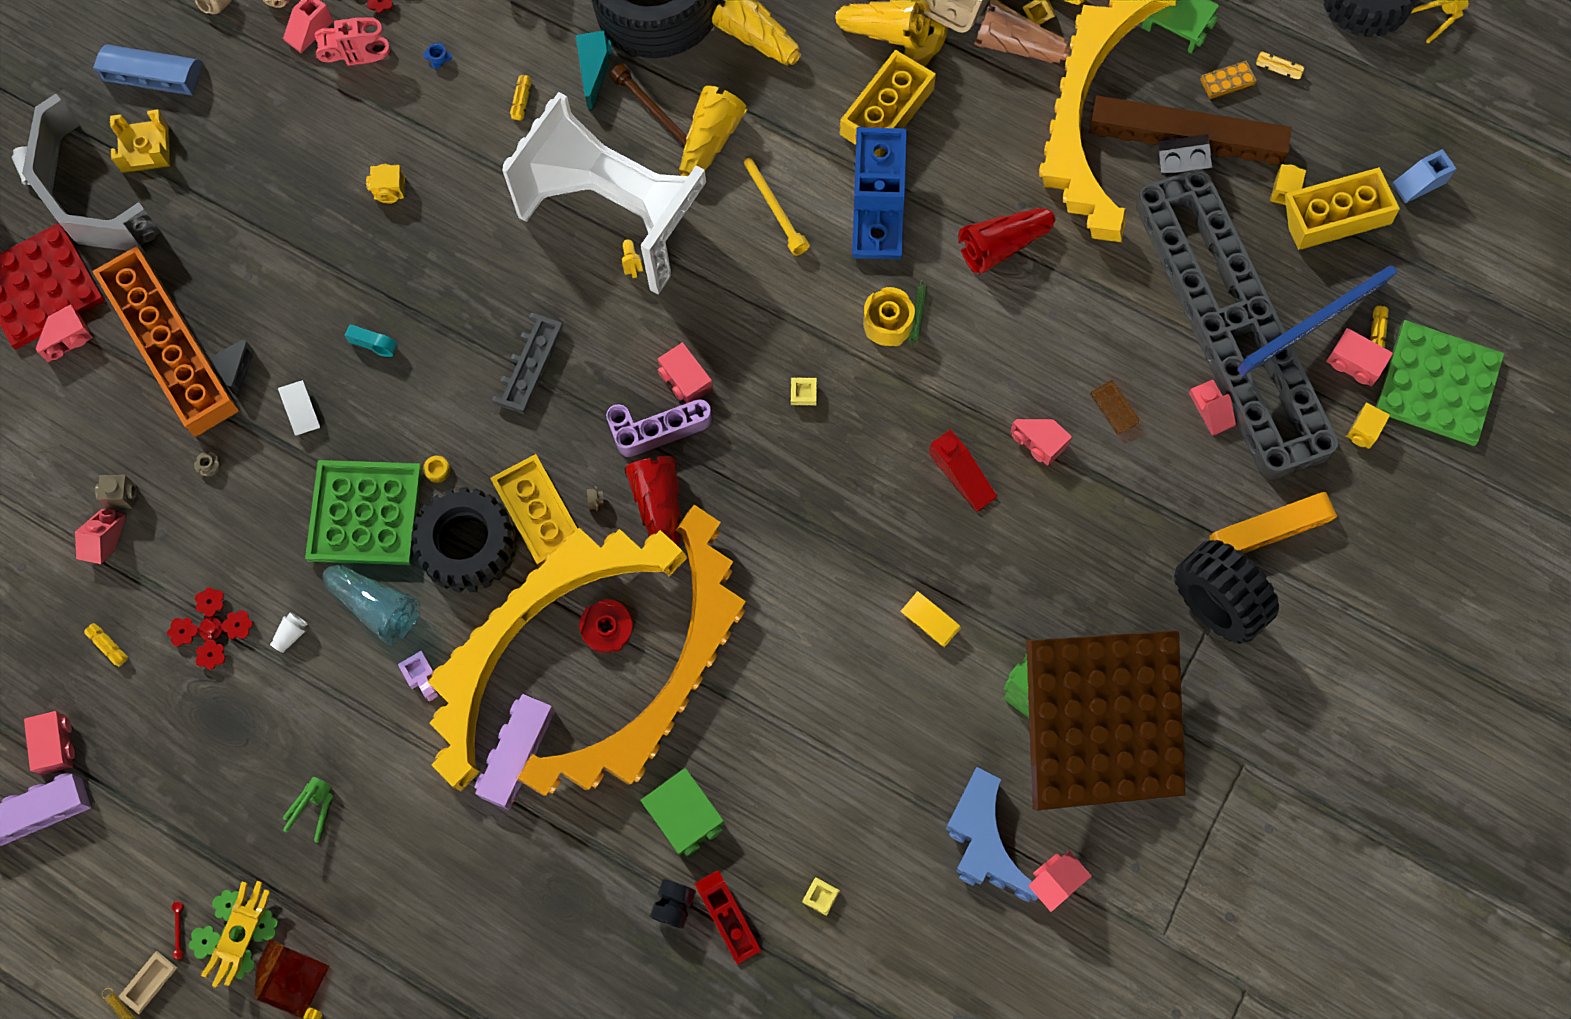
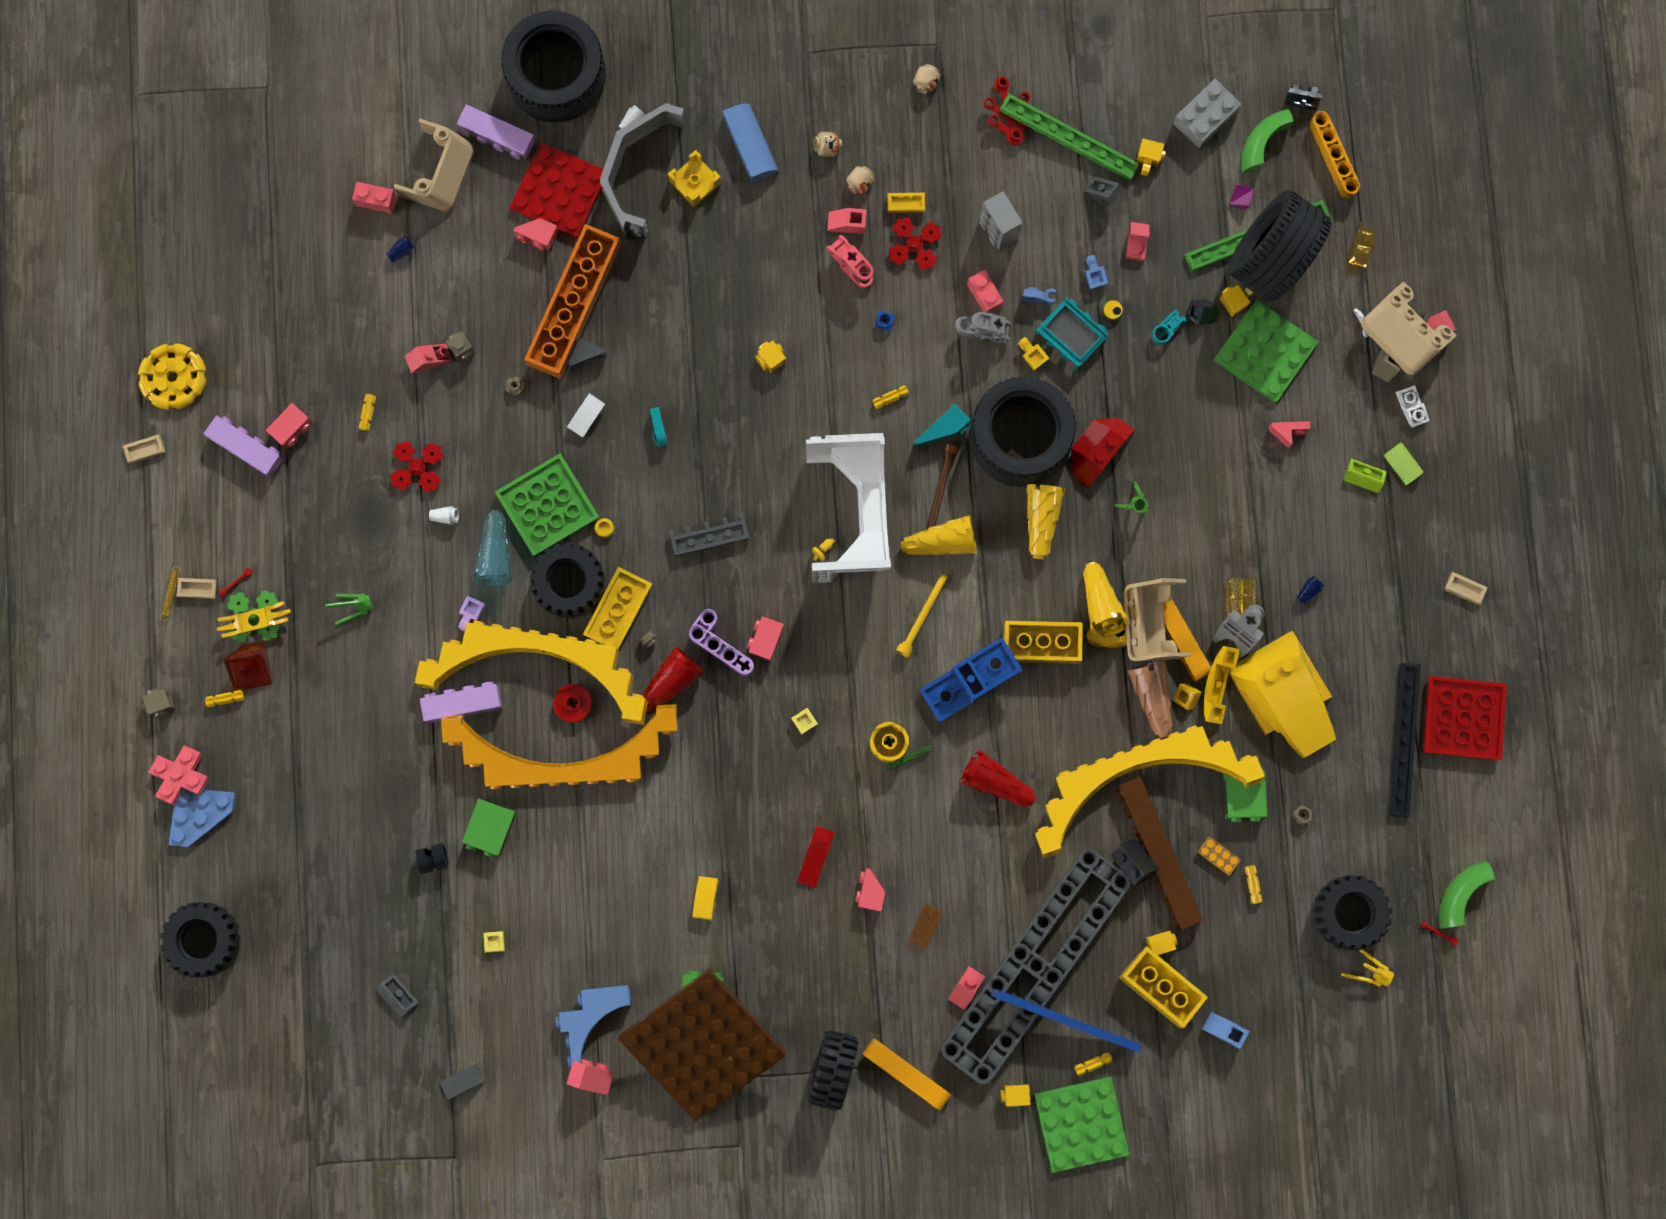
camera: 50 degrees right, 10 degrees up
(727, 917) = (446, 894): red slope -> none
(1359, 357) = (1062, 1062): coral brick -> none

